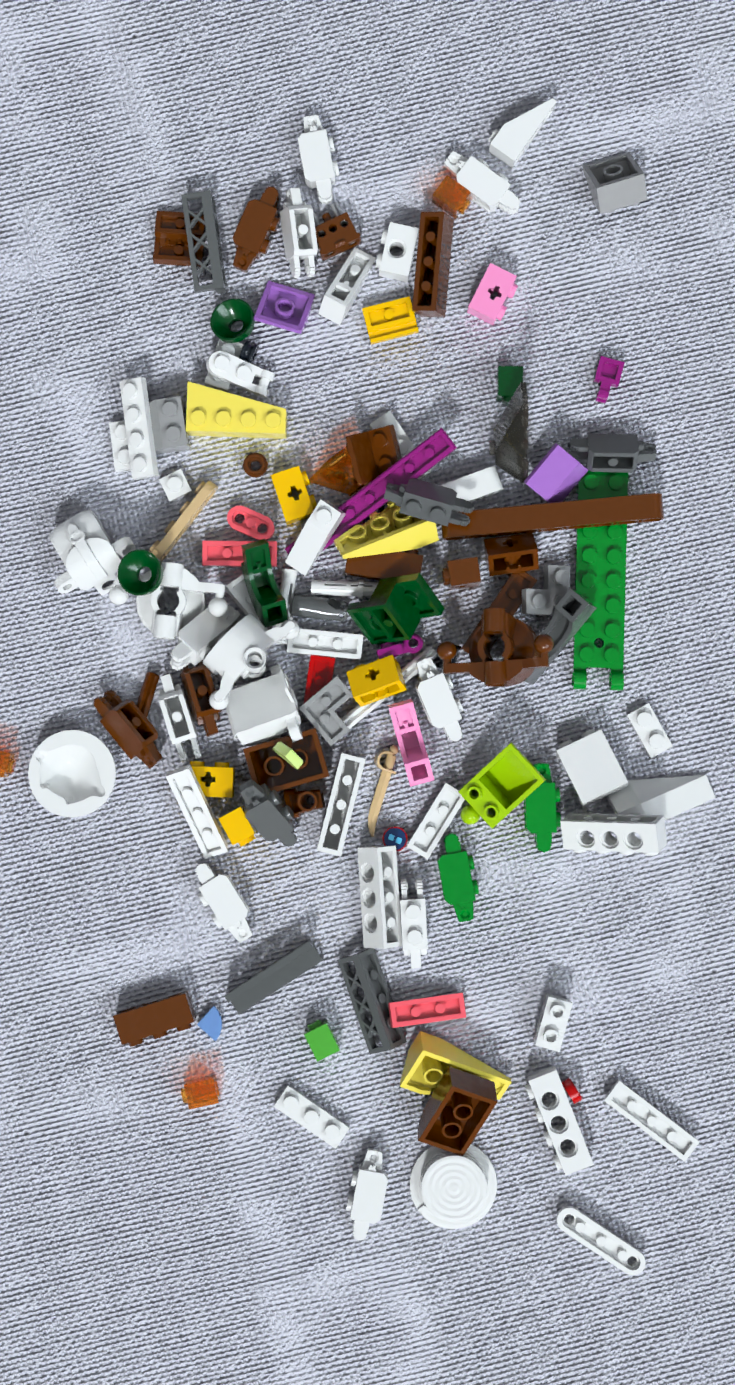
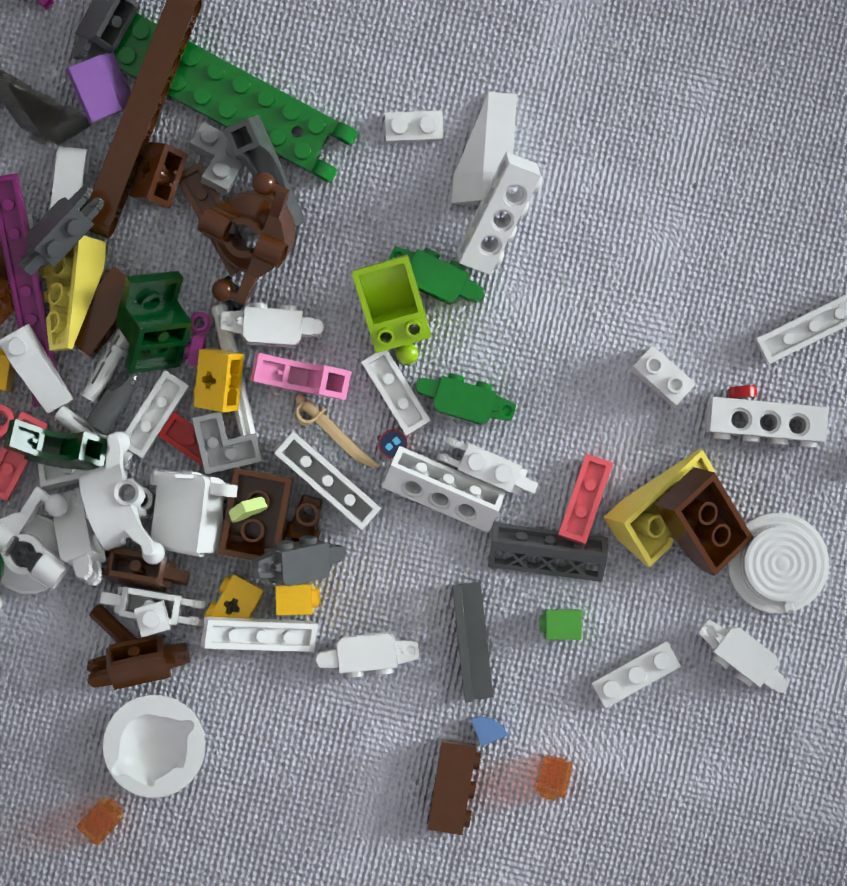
camera: 65 degrees left, 0 degrees up
(168, 724) = (152, 618): none -> white plate
(461, 573) = (152, 235): reddish brown brick -> none
(591, 767) = (421, 203): white panel -> none

